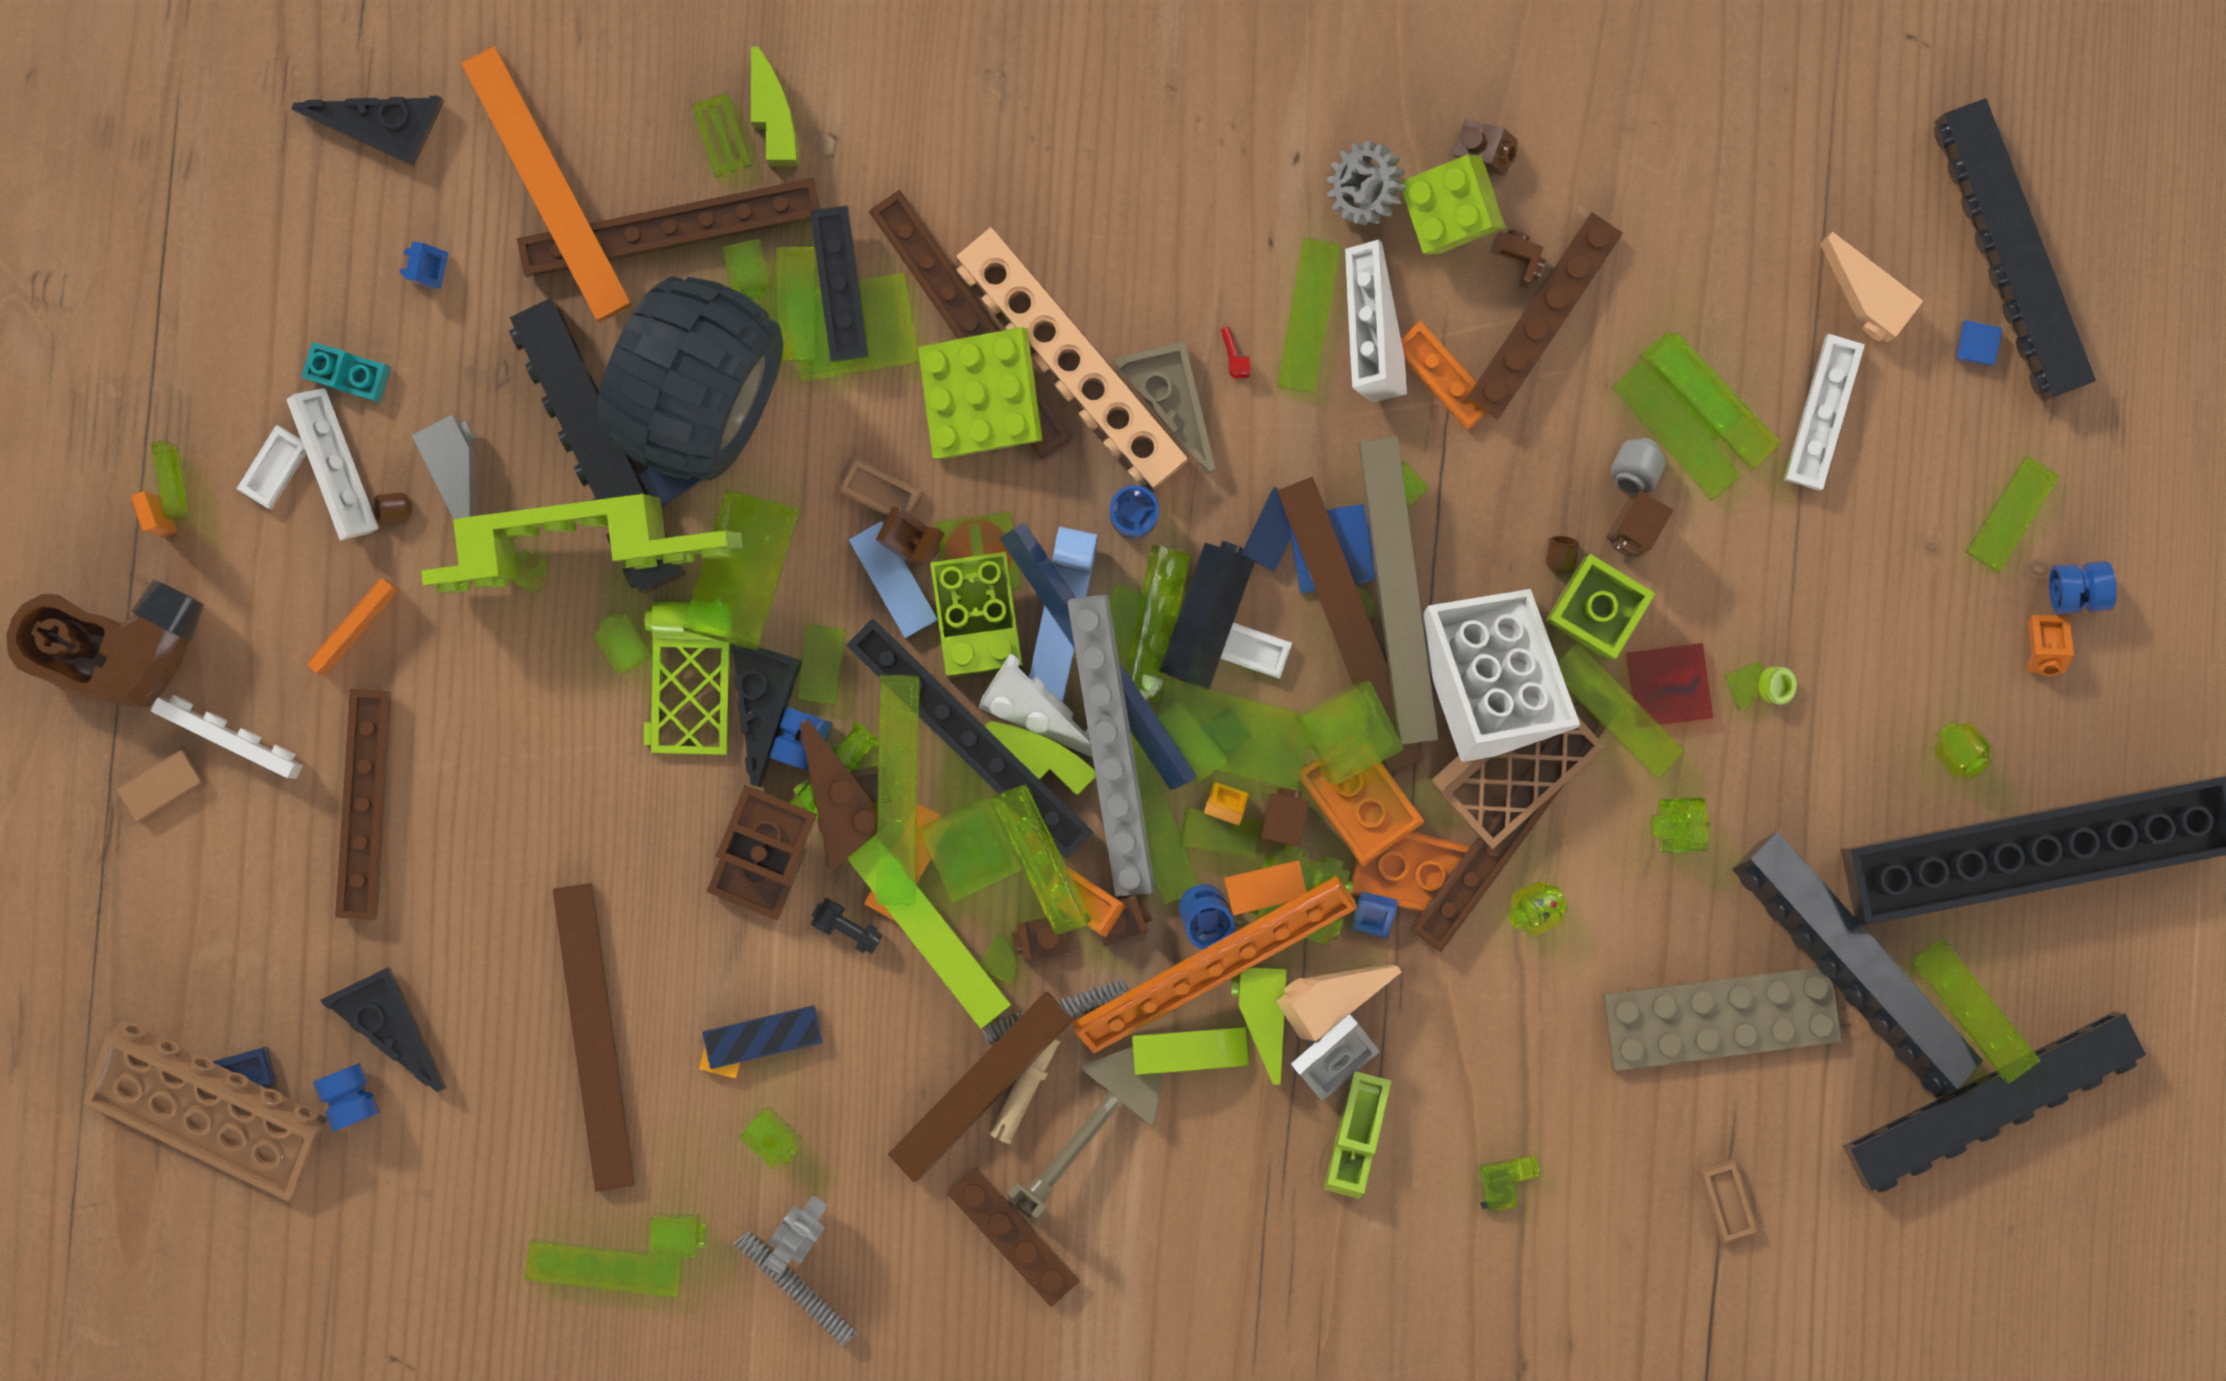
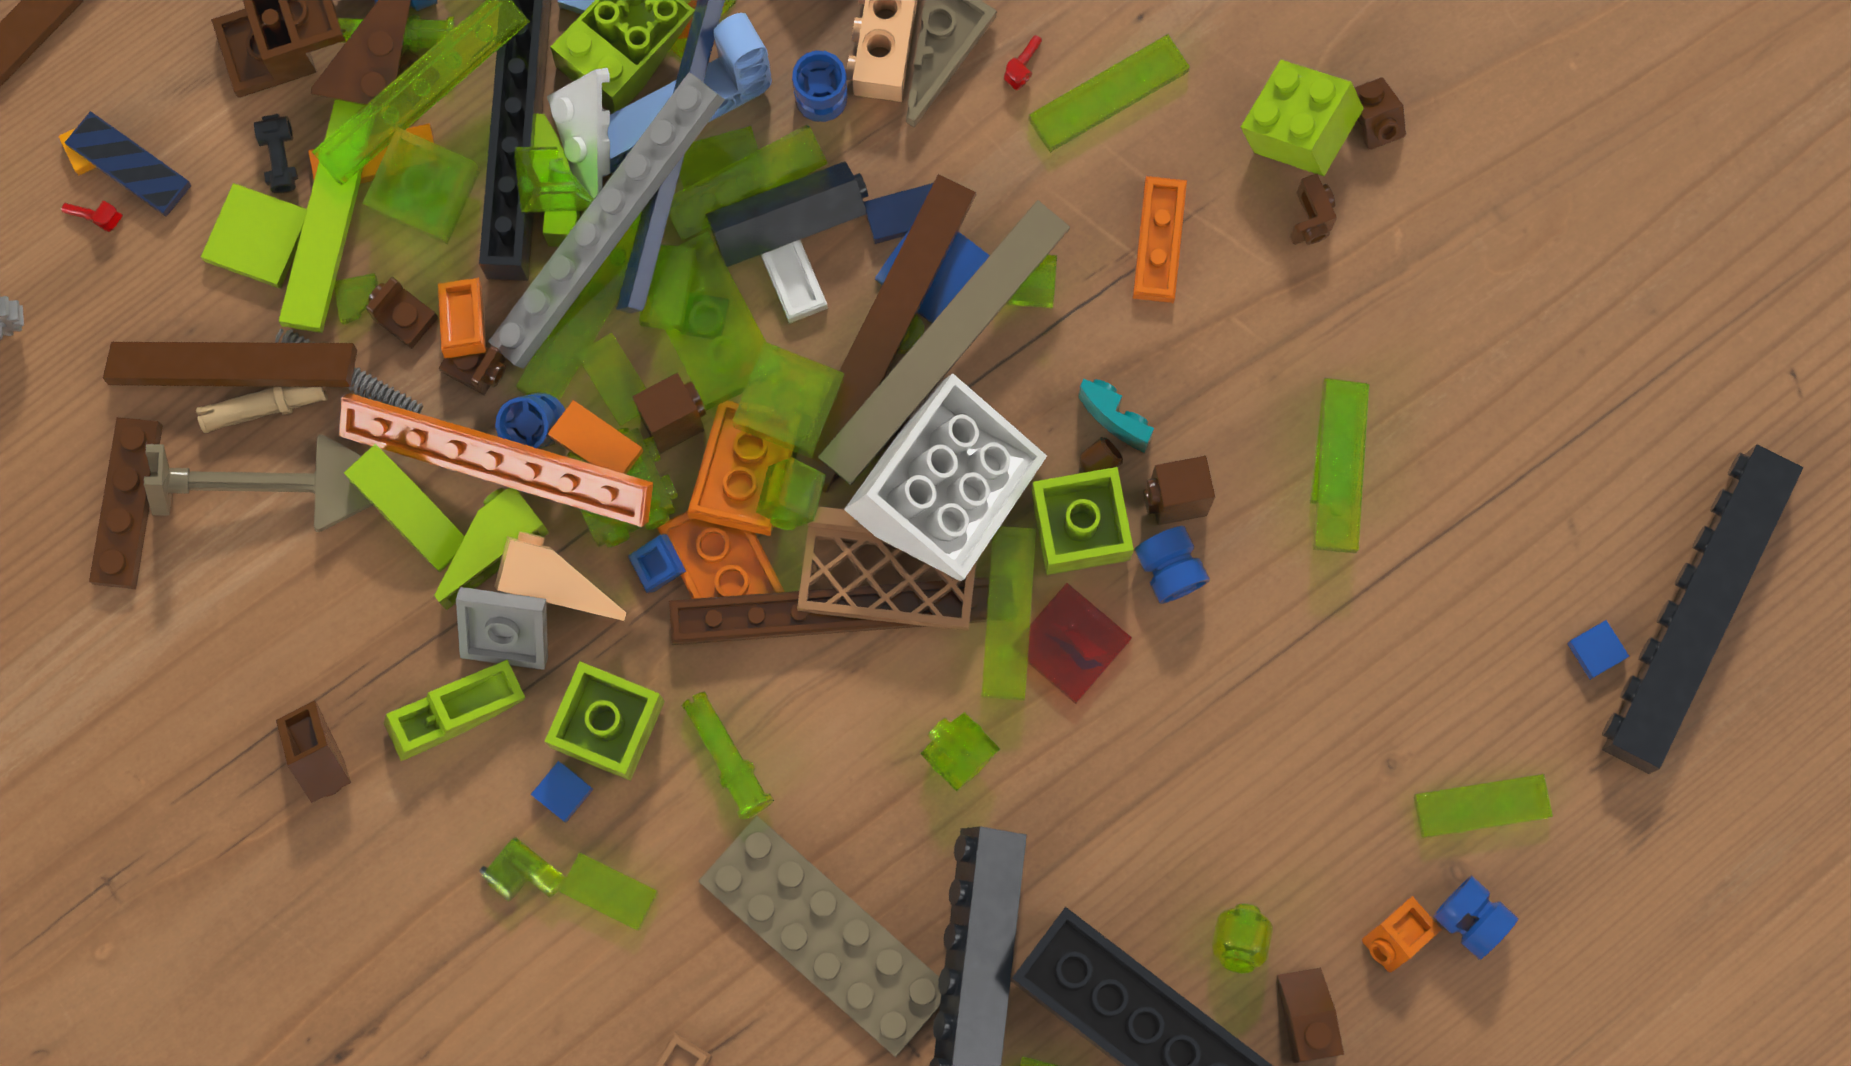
camera: 50 degrees right, 10 degrees down
(771, 1138) = (46, 236): clear neon green brick -> none
(788, 1084) = (104, 217): none -> red hand
(894, 991) = (255, 236): none -> lime tile
(1040, 859) = (460, 244): clear neon green tile -> none
(1048, 762) = (547, 183): none -> clear neon green slope
(1226, 803) = (643, 362): light orange tile -> none
(1304, 1253) = (312, 752): none -> reddish brown slope
(1366, 183) = (1256, 38): light grey gear -> none
(1373, 326) = (1138, 152): white slope -> none
(1414, 787) = (790, 494): none -> clear neon green brick
(1458, 1042) = (604, 721): none -> lime brick
(1474, 1109) = (562, 791): none -> blue tile
(1528, 519) = (1103, 403): none -> teal slope
(1537, 908) = (780, 692): clear neon green head -> none
(1544, 316) = (1282, 273): reddish brown plate -> none
(1564, 984) = (735, 772): none -> clear neon green pin
(1568, 1135) = (609, 891): none -> clear neon green tile
(1638, 466) = (1231, 453): light grey head -> none
(1676, 430) = (1289, 463): clear neon green tile -> none
(1680, 573) = (1172, 565): none -> blue wheel
(1744, 684) = (1130, 705): clear neon green tile -> none
(1777, 685) = (1153, 731): lime tile -> none
(1824, 412) = (1418, 569): white plate -> none
(1872, 293) = (1554, 529): light nougat slope -> none
(2050, 751) = (1309, 1016): none -> reddish brown slope

